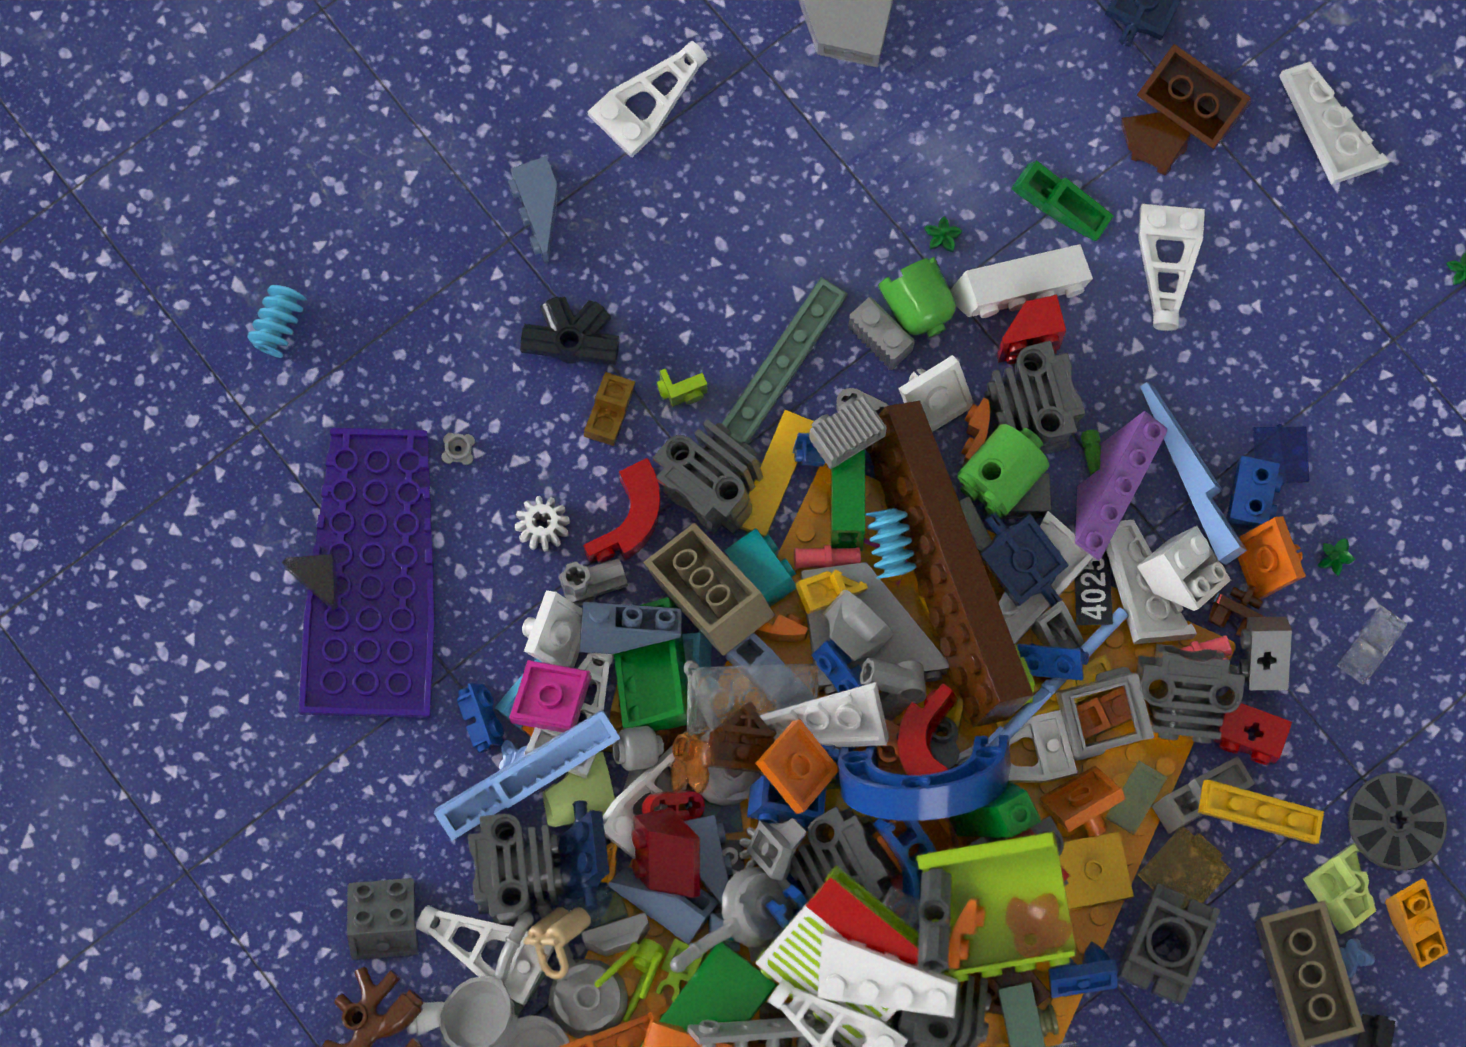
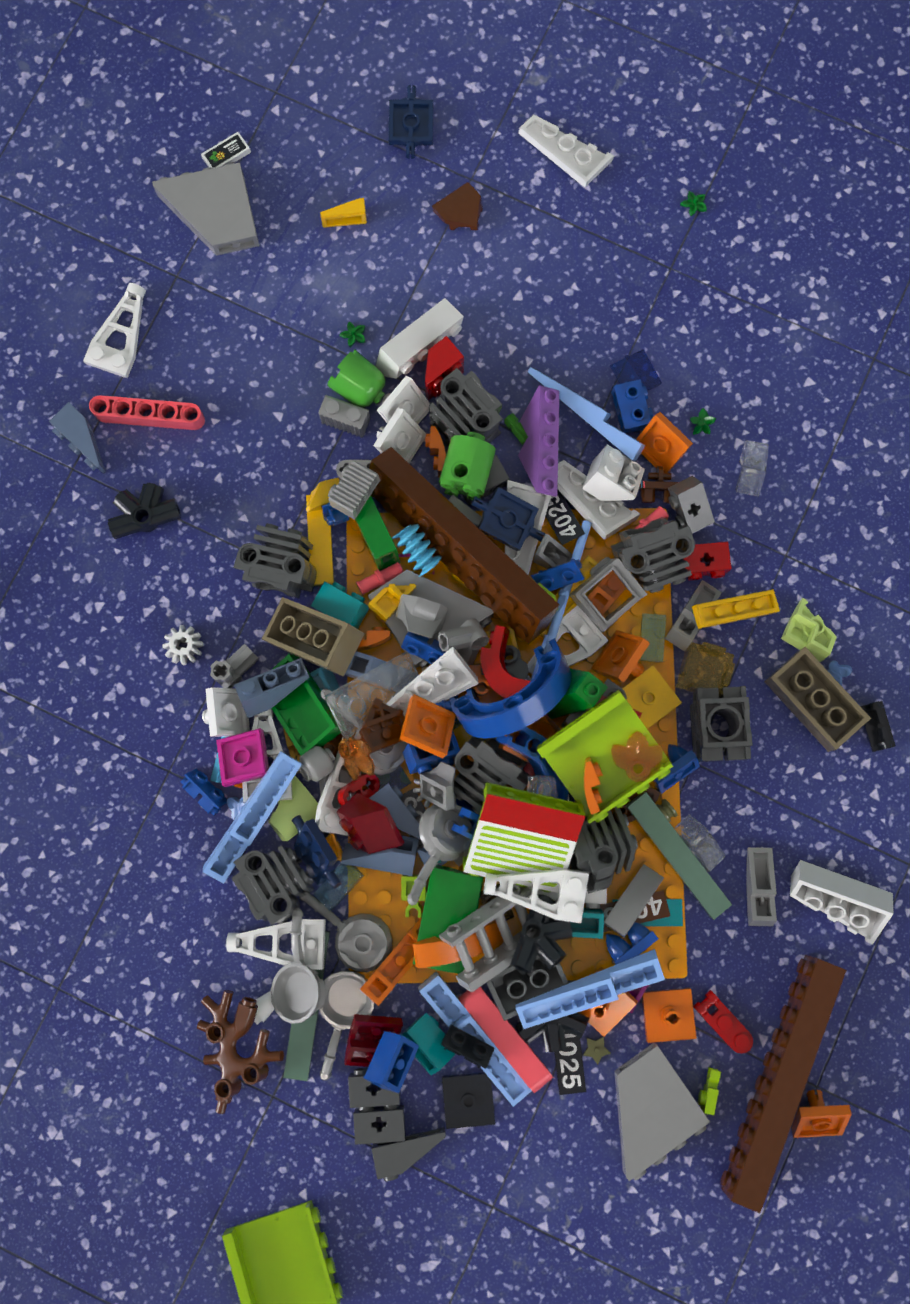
camera: 25 degrees left, 5 degrees up
(317, 575) = (49, 751): clear smoke slope -> none
(377, 524) = (88, 736): dark purple wing -> none
(381, 919) = (202, 957): flat silver bracket -> none
(454, 440) = (101, 628): light grey plate -> none
(557, 930) = (321, 912): tan piece -> none
(609, 408) = (191, 548): pearl gold slope -> none
(617, 935) = (362, 893): light grey slope -> none
(630, 200) = (139, 406): none -> coral beam
(633, 534) = (246, 612): red arch -> none
(646, 959) = (389, 897): lime plant -> none
(688, 390) = (235, 513): lime bracket -> none
(784, 361) = (290, 463): sand green tile -> none
(803, 417) = (319, 495): none -> yellow slope
(870, 978) = (544, 846): white wing -> none
(934, 936) = (575, 800): dark grey piece -> none
(970, 347) = (407, 397): none -> white tile
(1006, 79) = (345, 214): none -> yellow slope
(1062, 200) = (419, 276): green slope -> none
(1171, 224) = (498, 259): white plate -> none
(1194, 97) = (472, 168): reddish brown slope -> none
(1380, 839) = (827, 589): dark grey piece -> none
(1417, 923) = (866, 631): light orange slope -> none

